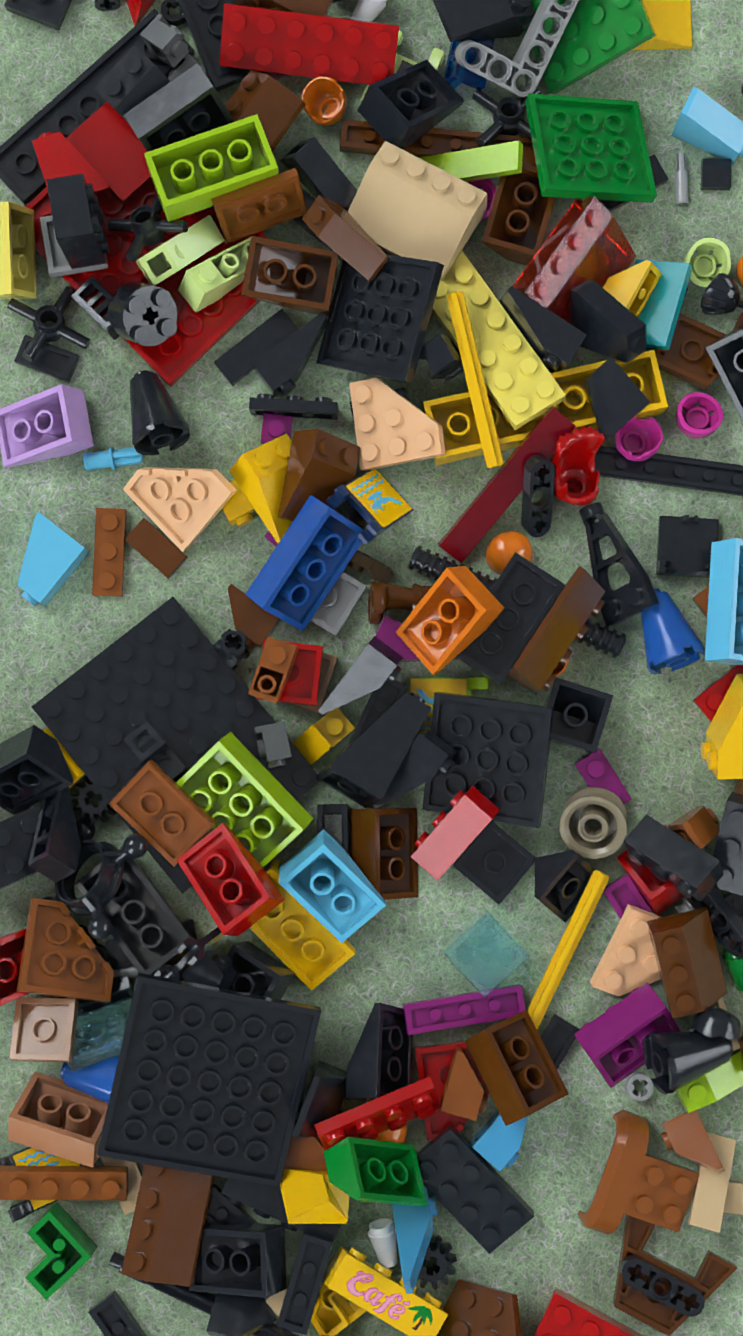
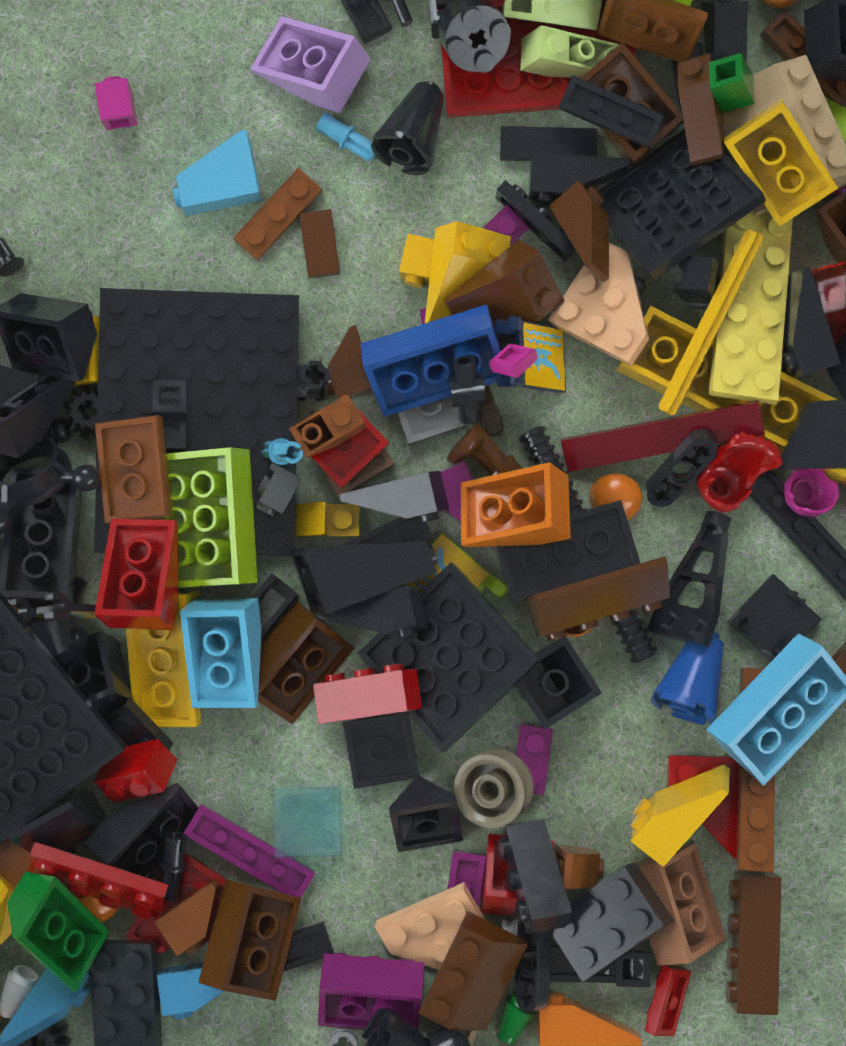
camera: 35 degrees right, 0 degrees up
(180, 499) = (373, 218): light nougat plate -> none
(255, 714) = (282, 451): none -> medium azure axle
(284, 290) = (610, 112): none -> black plate
(317, 990) = (134, 725): none -> black plate
(332, 383) = (586, 225): none -> reddish brown slope
(341, 1019) = (137, 771): none -> red brick
(346, 564) = (467, 389): none -> black axle
(351, 202) = (731, 83): none -> green brick
(362, 518) = (513, 360): none -> dark pink tile
(417, 1059) = (173, 863): none -> black axle
(430, 230) = (780, 162): none -> yellow slope
(567, 946) = (381, 873): yellow axle -> none

